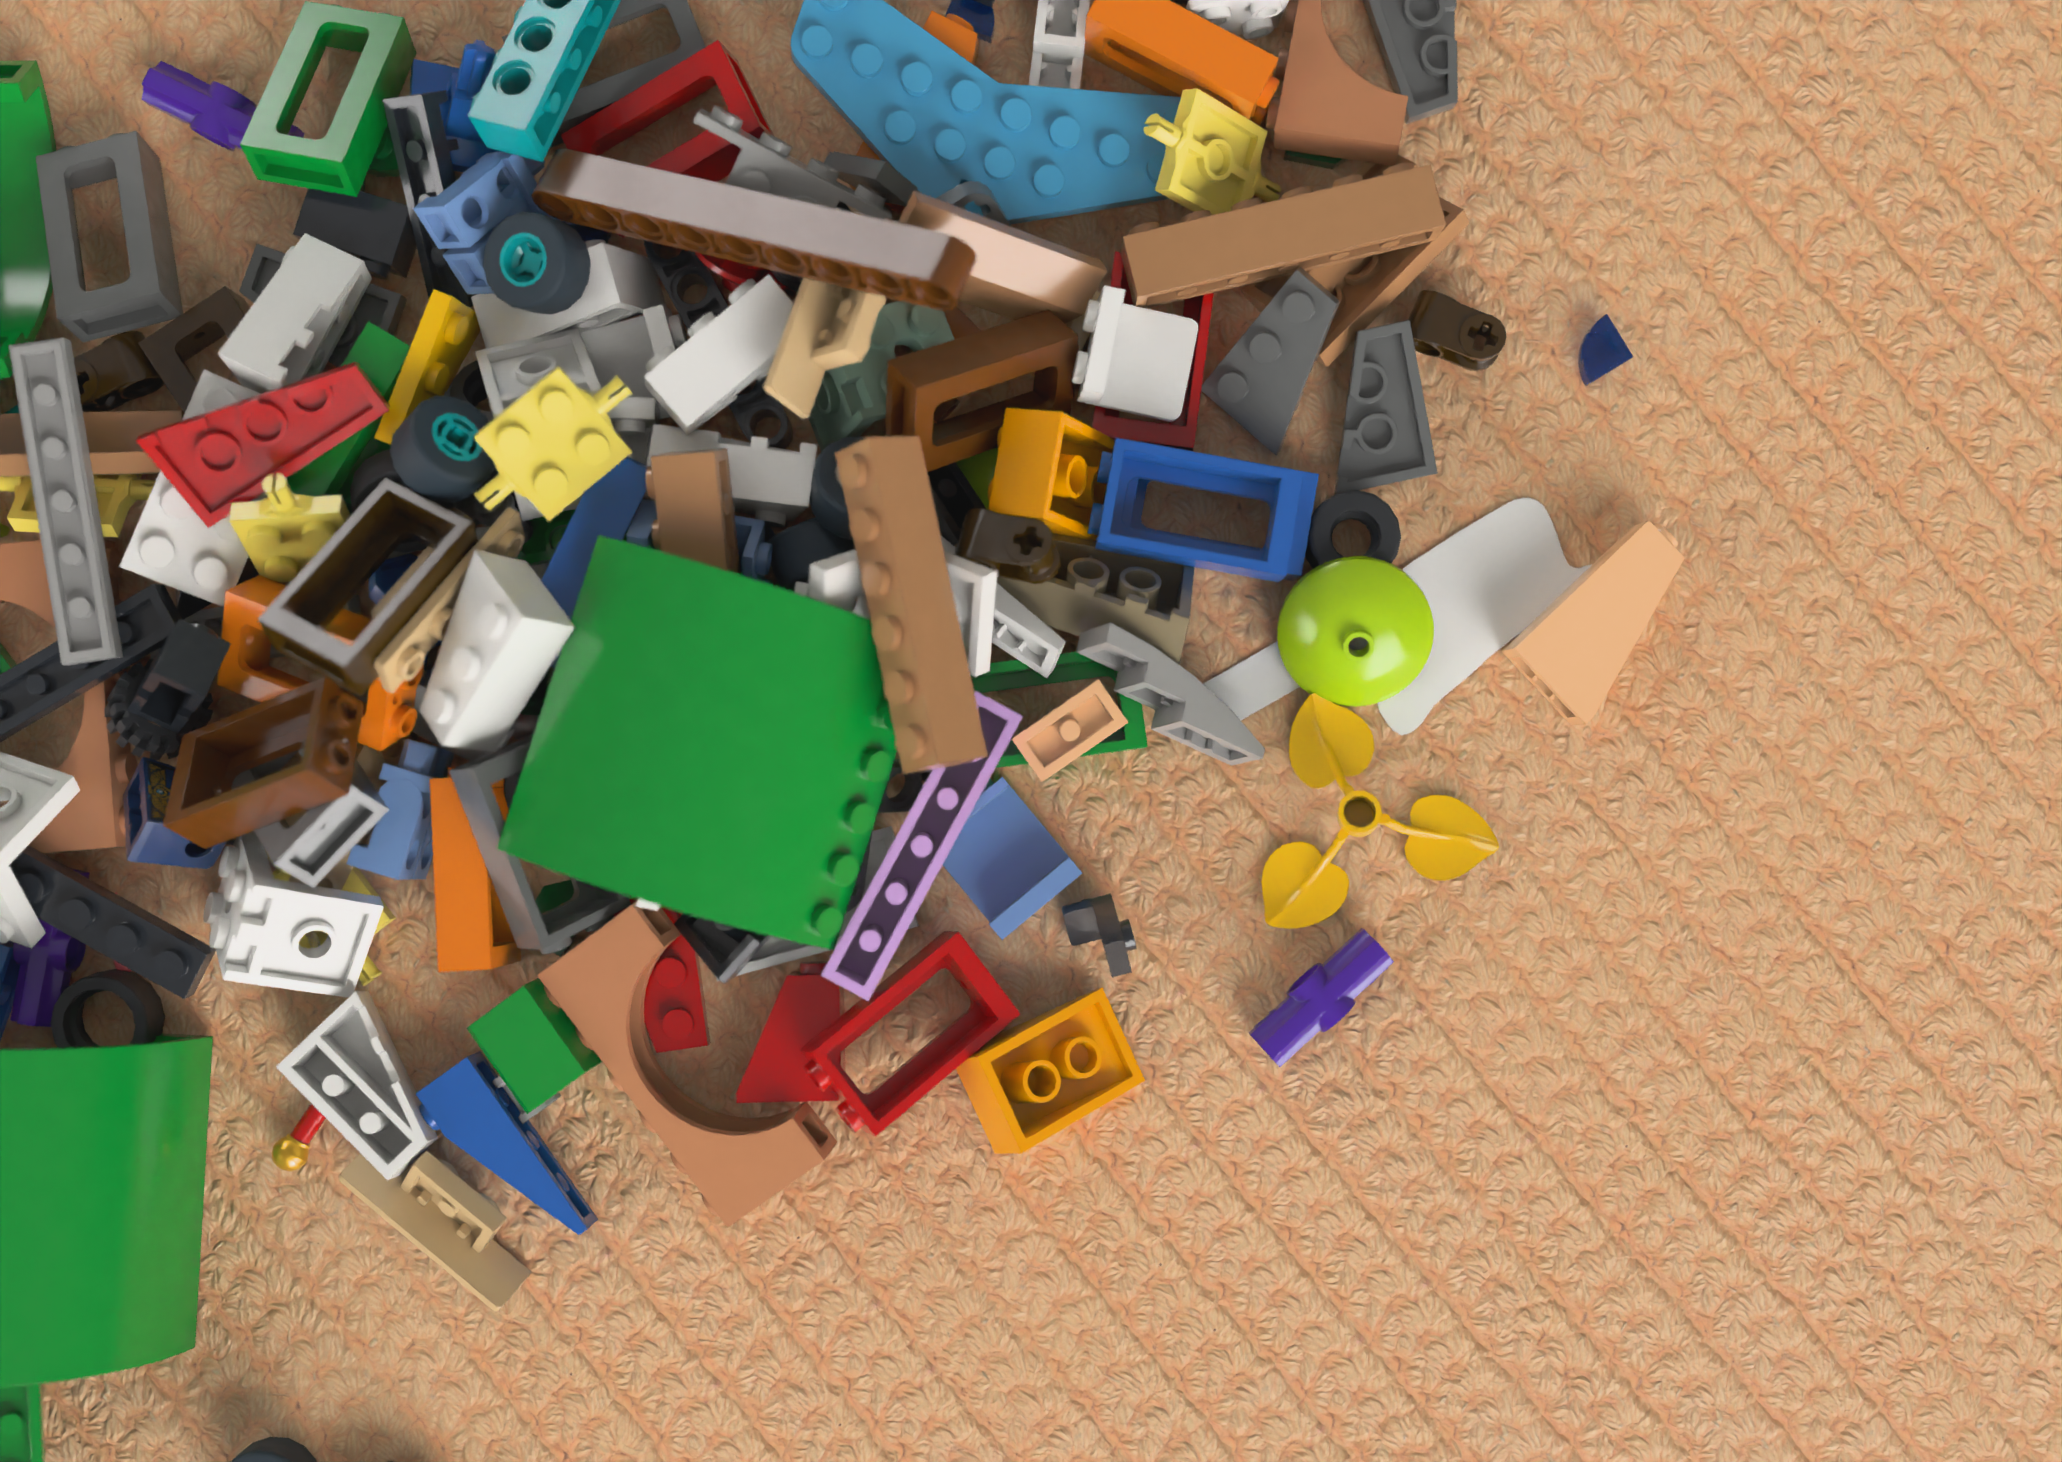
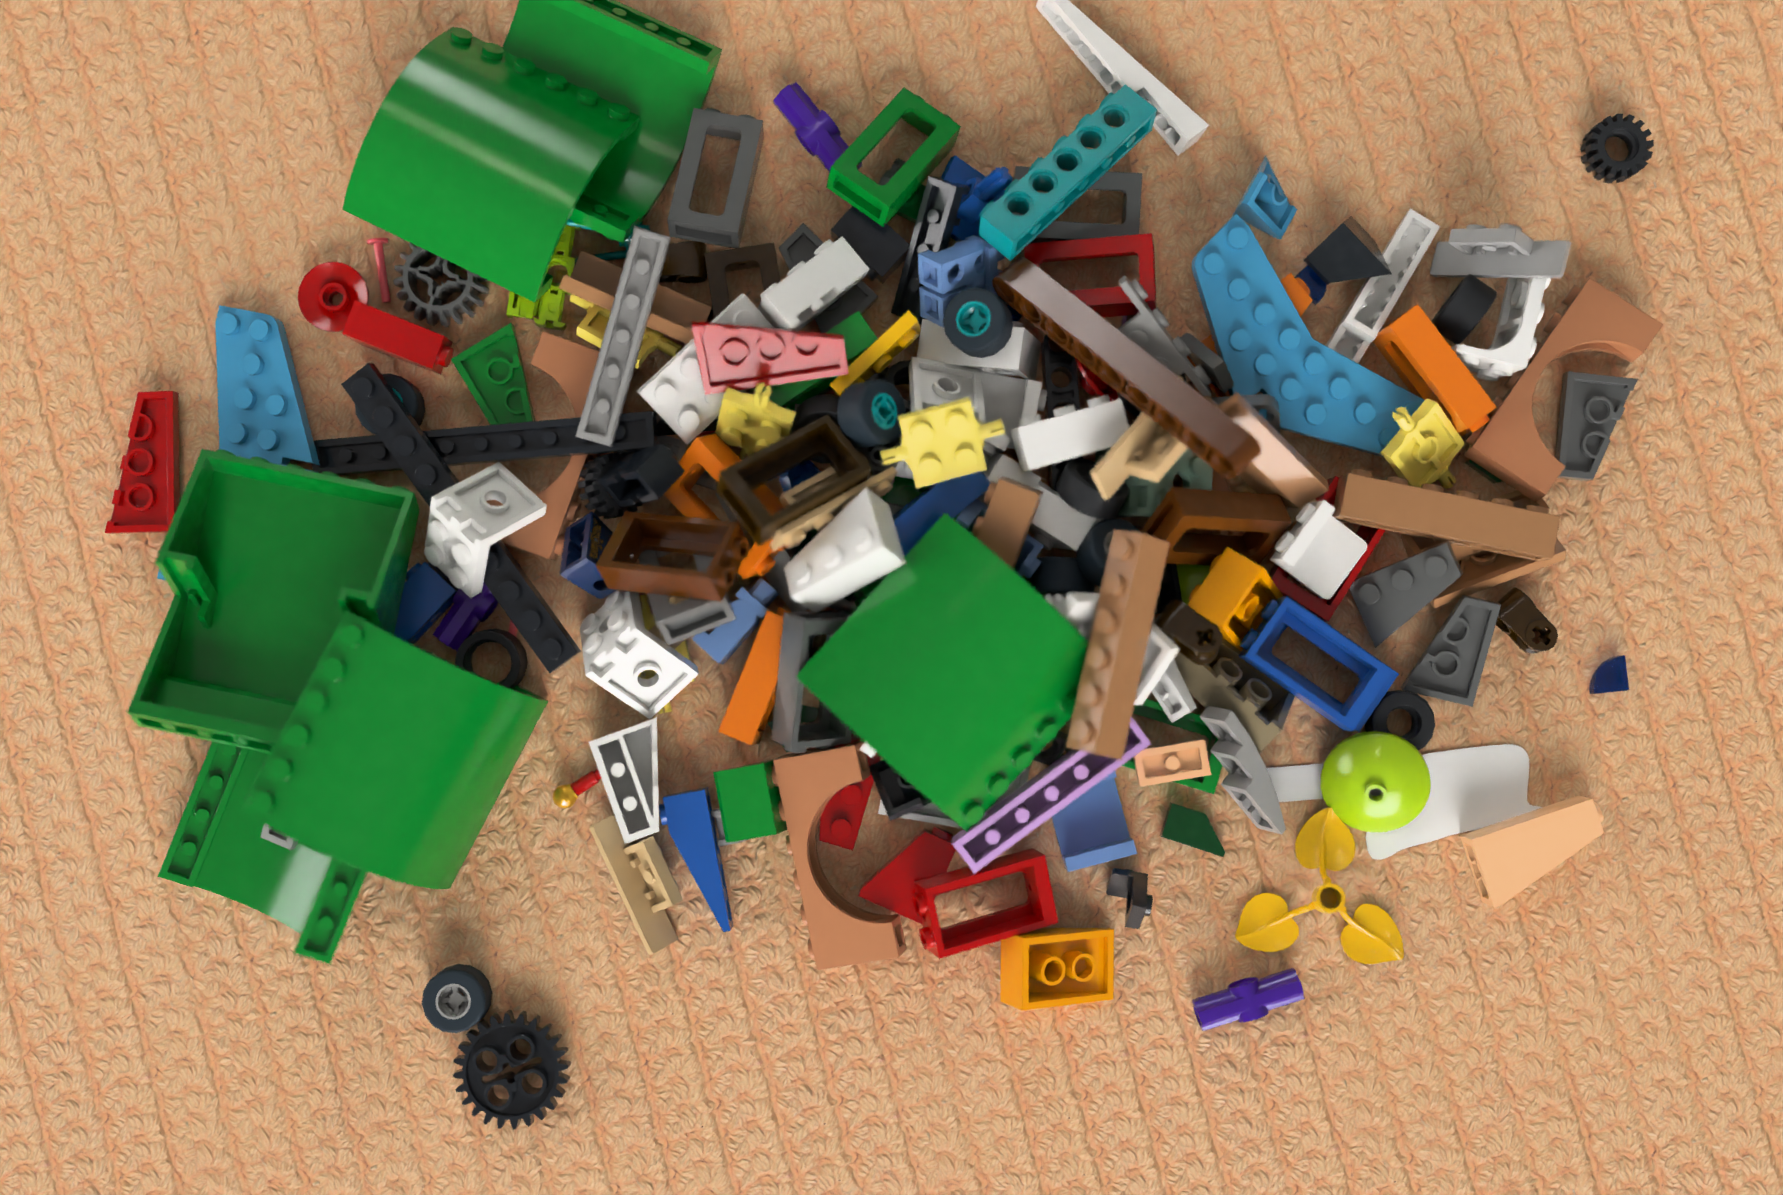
camera: 30 degrees right, 0 degrees up
(777, 428) = (1081, 493): none -> black tyre
(1143, 808) = (1191, 829): none -> dark green tile

